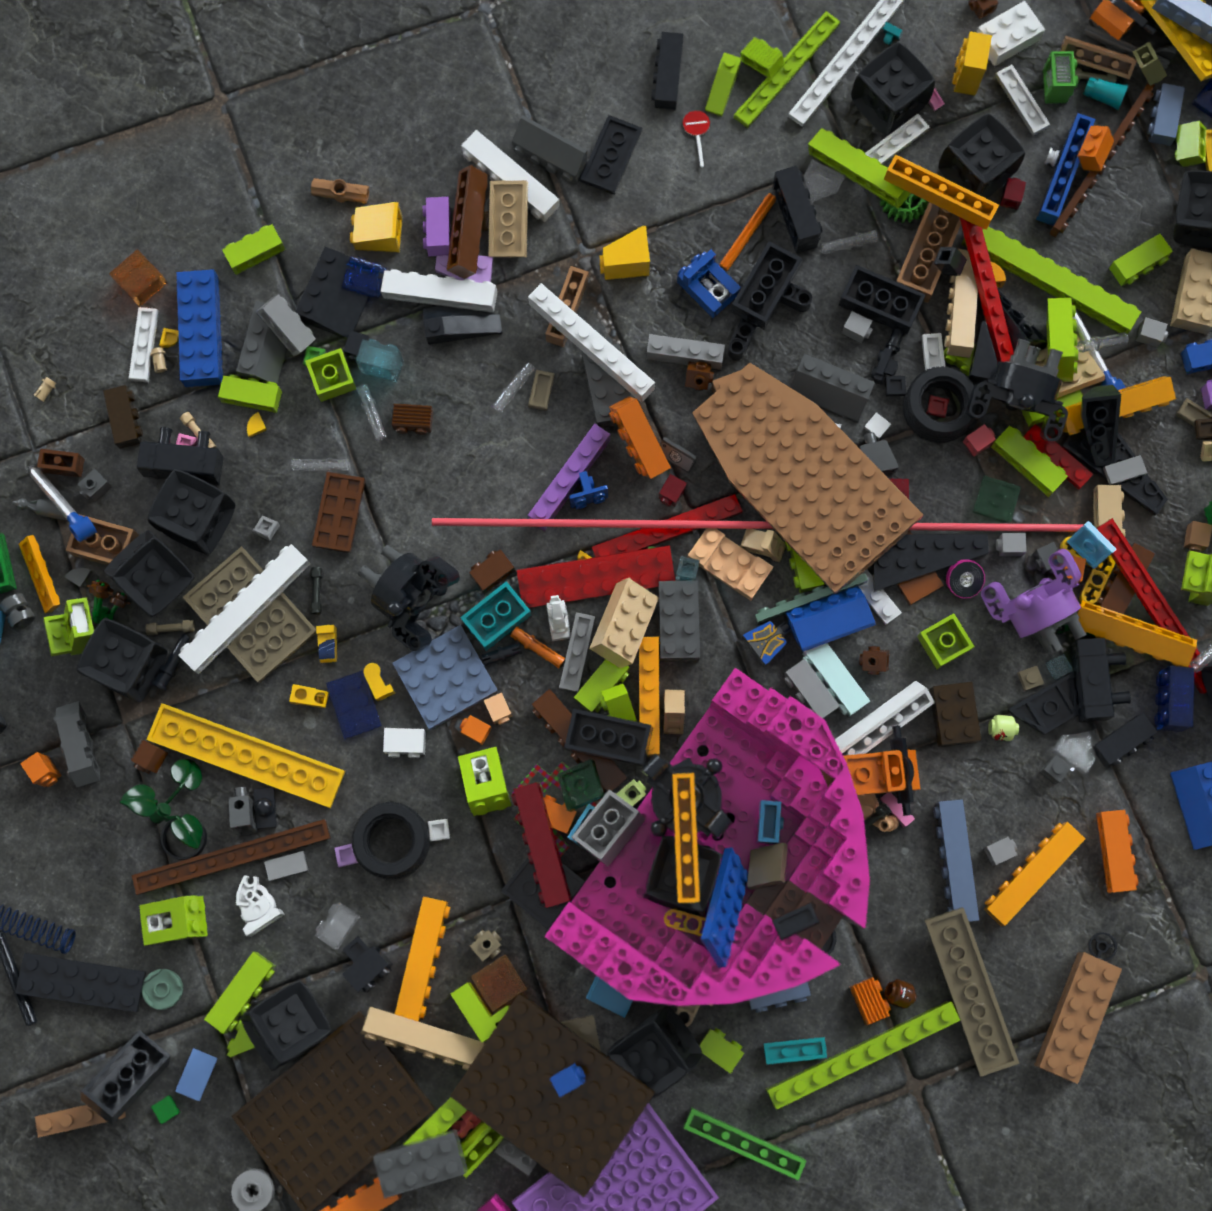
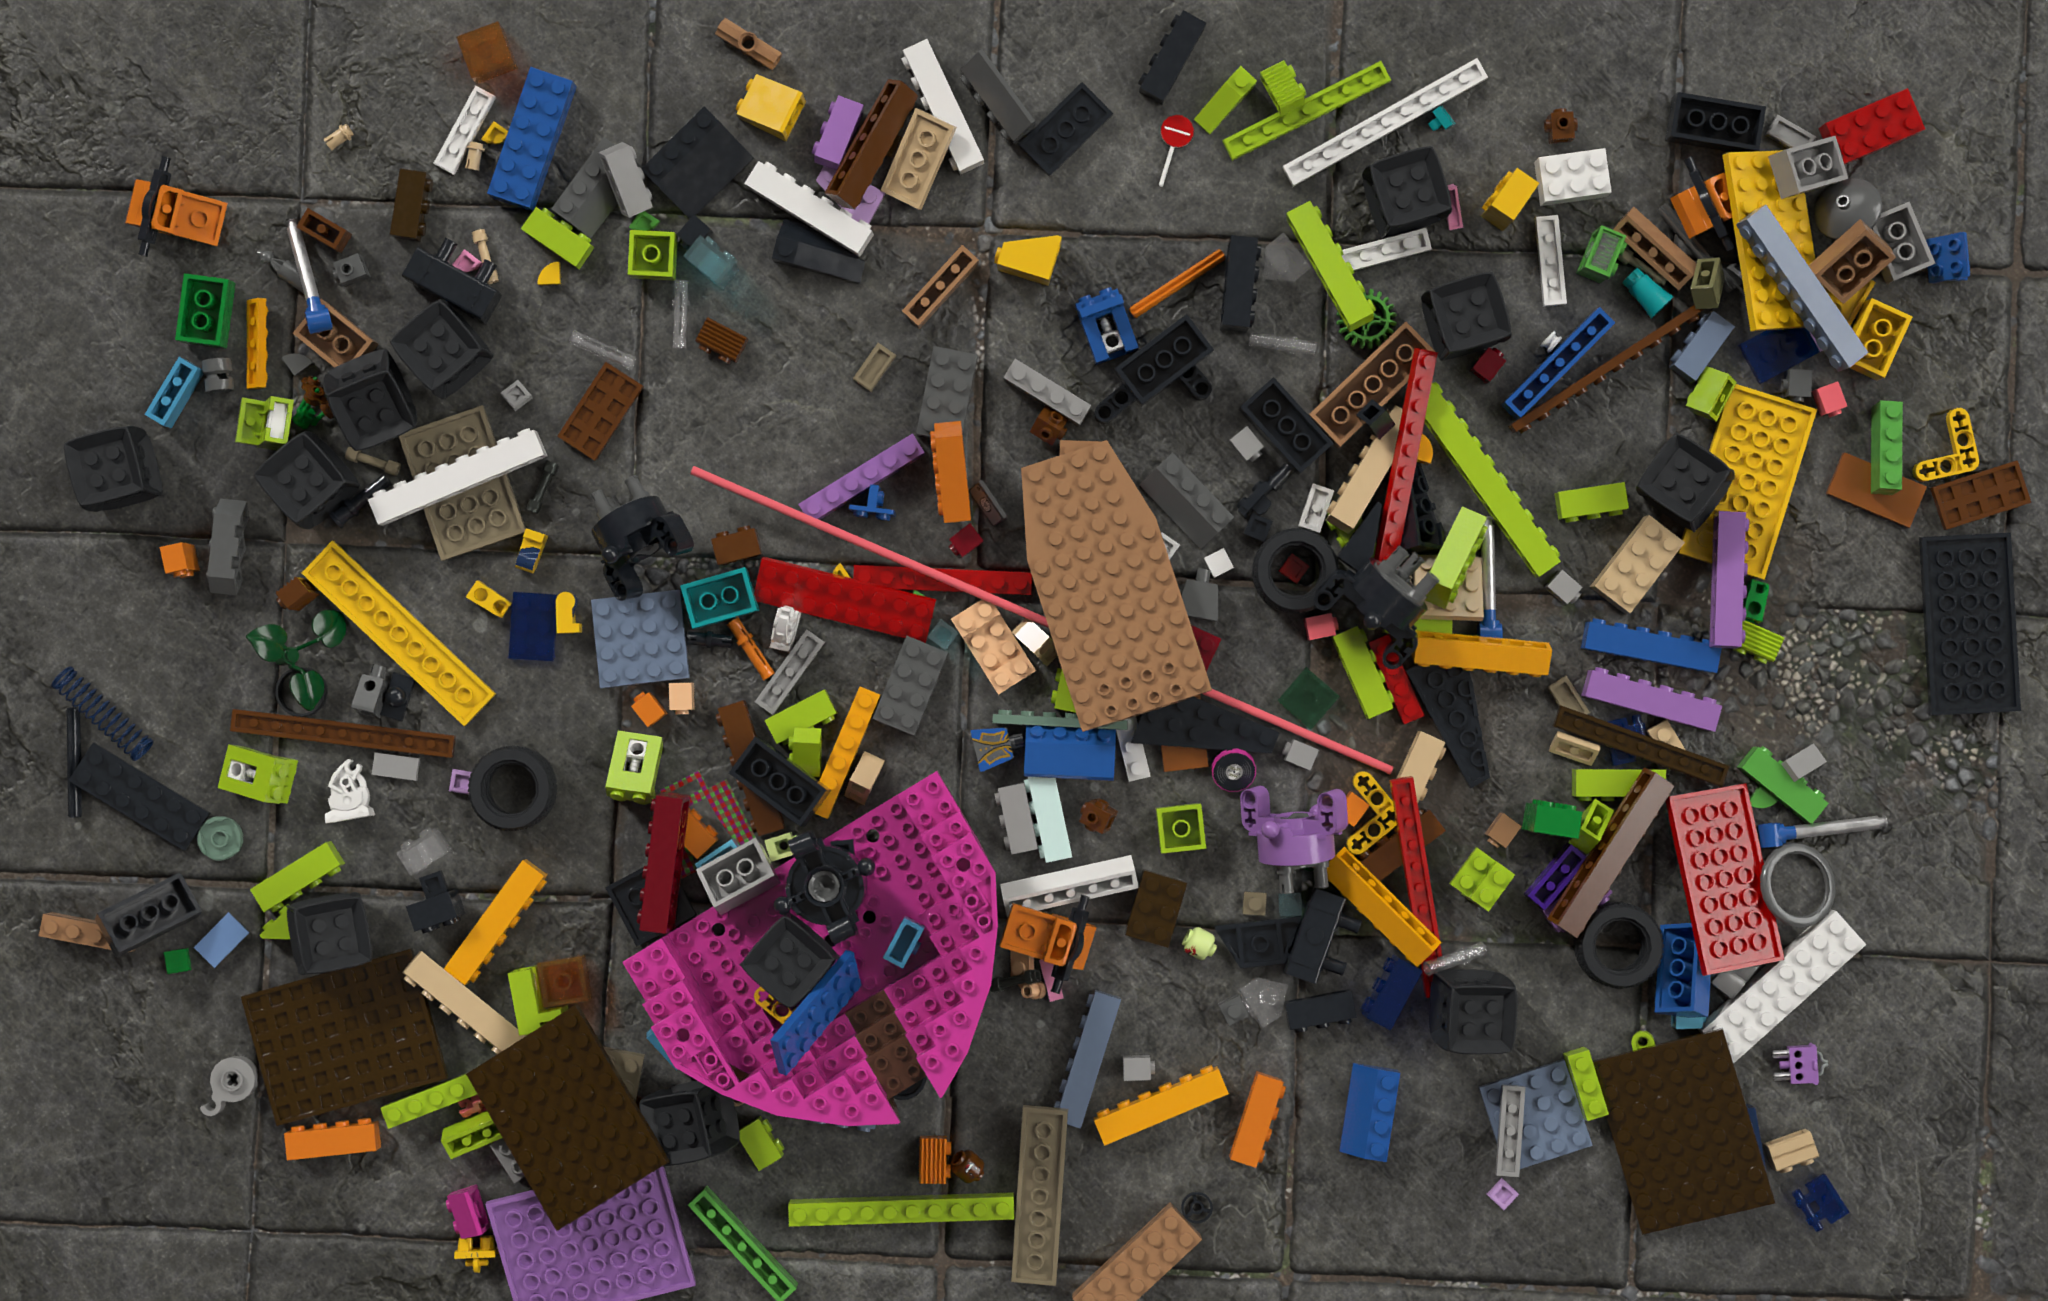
camera: 25 degrees right, 10 degrees up
(253, 249) = (626, 71): lime brick -> none
(362, 282) = (729, 163): clear blue plate -> none
(404, 741) = (570, 690): white brick -> none
(420, 1163) = (409, 1127): dark grey brick -> none
(438, 830) = (568, 796): white tile -> none
(479, 945) = (560, 940): dark tan brick -> none
(508, 393) = (836, 356): clear pin -> none
(568, 1079) = (586, 1112): blue brick -> none
(580, 785) = (731, 816): clear green plate -> none
(591, 343) = (945, 344): white brick -> none
(624, 623) = (849, 665): tan brick -> none
(685, 838) = (801, 930): light orange brick -> none
(767, 866) = (881, 986): dark tan tile -> none
(795, 921) = (877, 1060): black tile -> none
(795, 1050) = (836, 1175): teal plate -> none
(941, 192) = (1396, 341): light orange brick -> none
(1042, 557) = (1331, 781): dark grey brick -> none
(1091, 545) = (1379, 794): medium azure tile -> none
(1095, 148) = (1599, 356): orange brick -> none
(1097, 343) = (1495, 576): clear pin -> none
(1101, 420) = (1451, 667): black wedge -> none
(1125, 470) = (1458, 727): light grey tile -> none

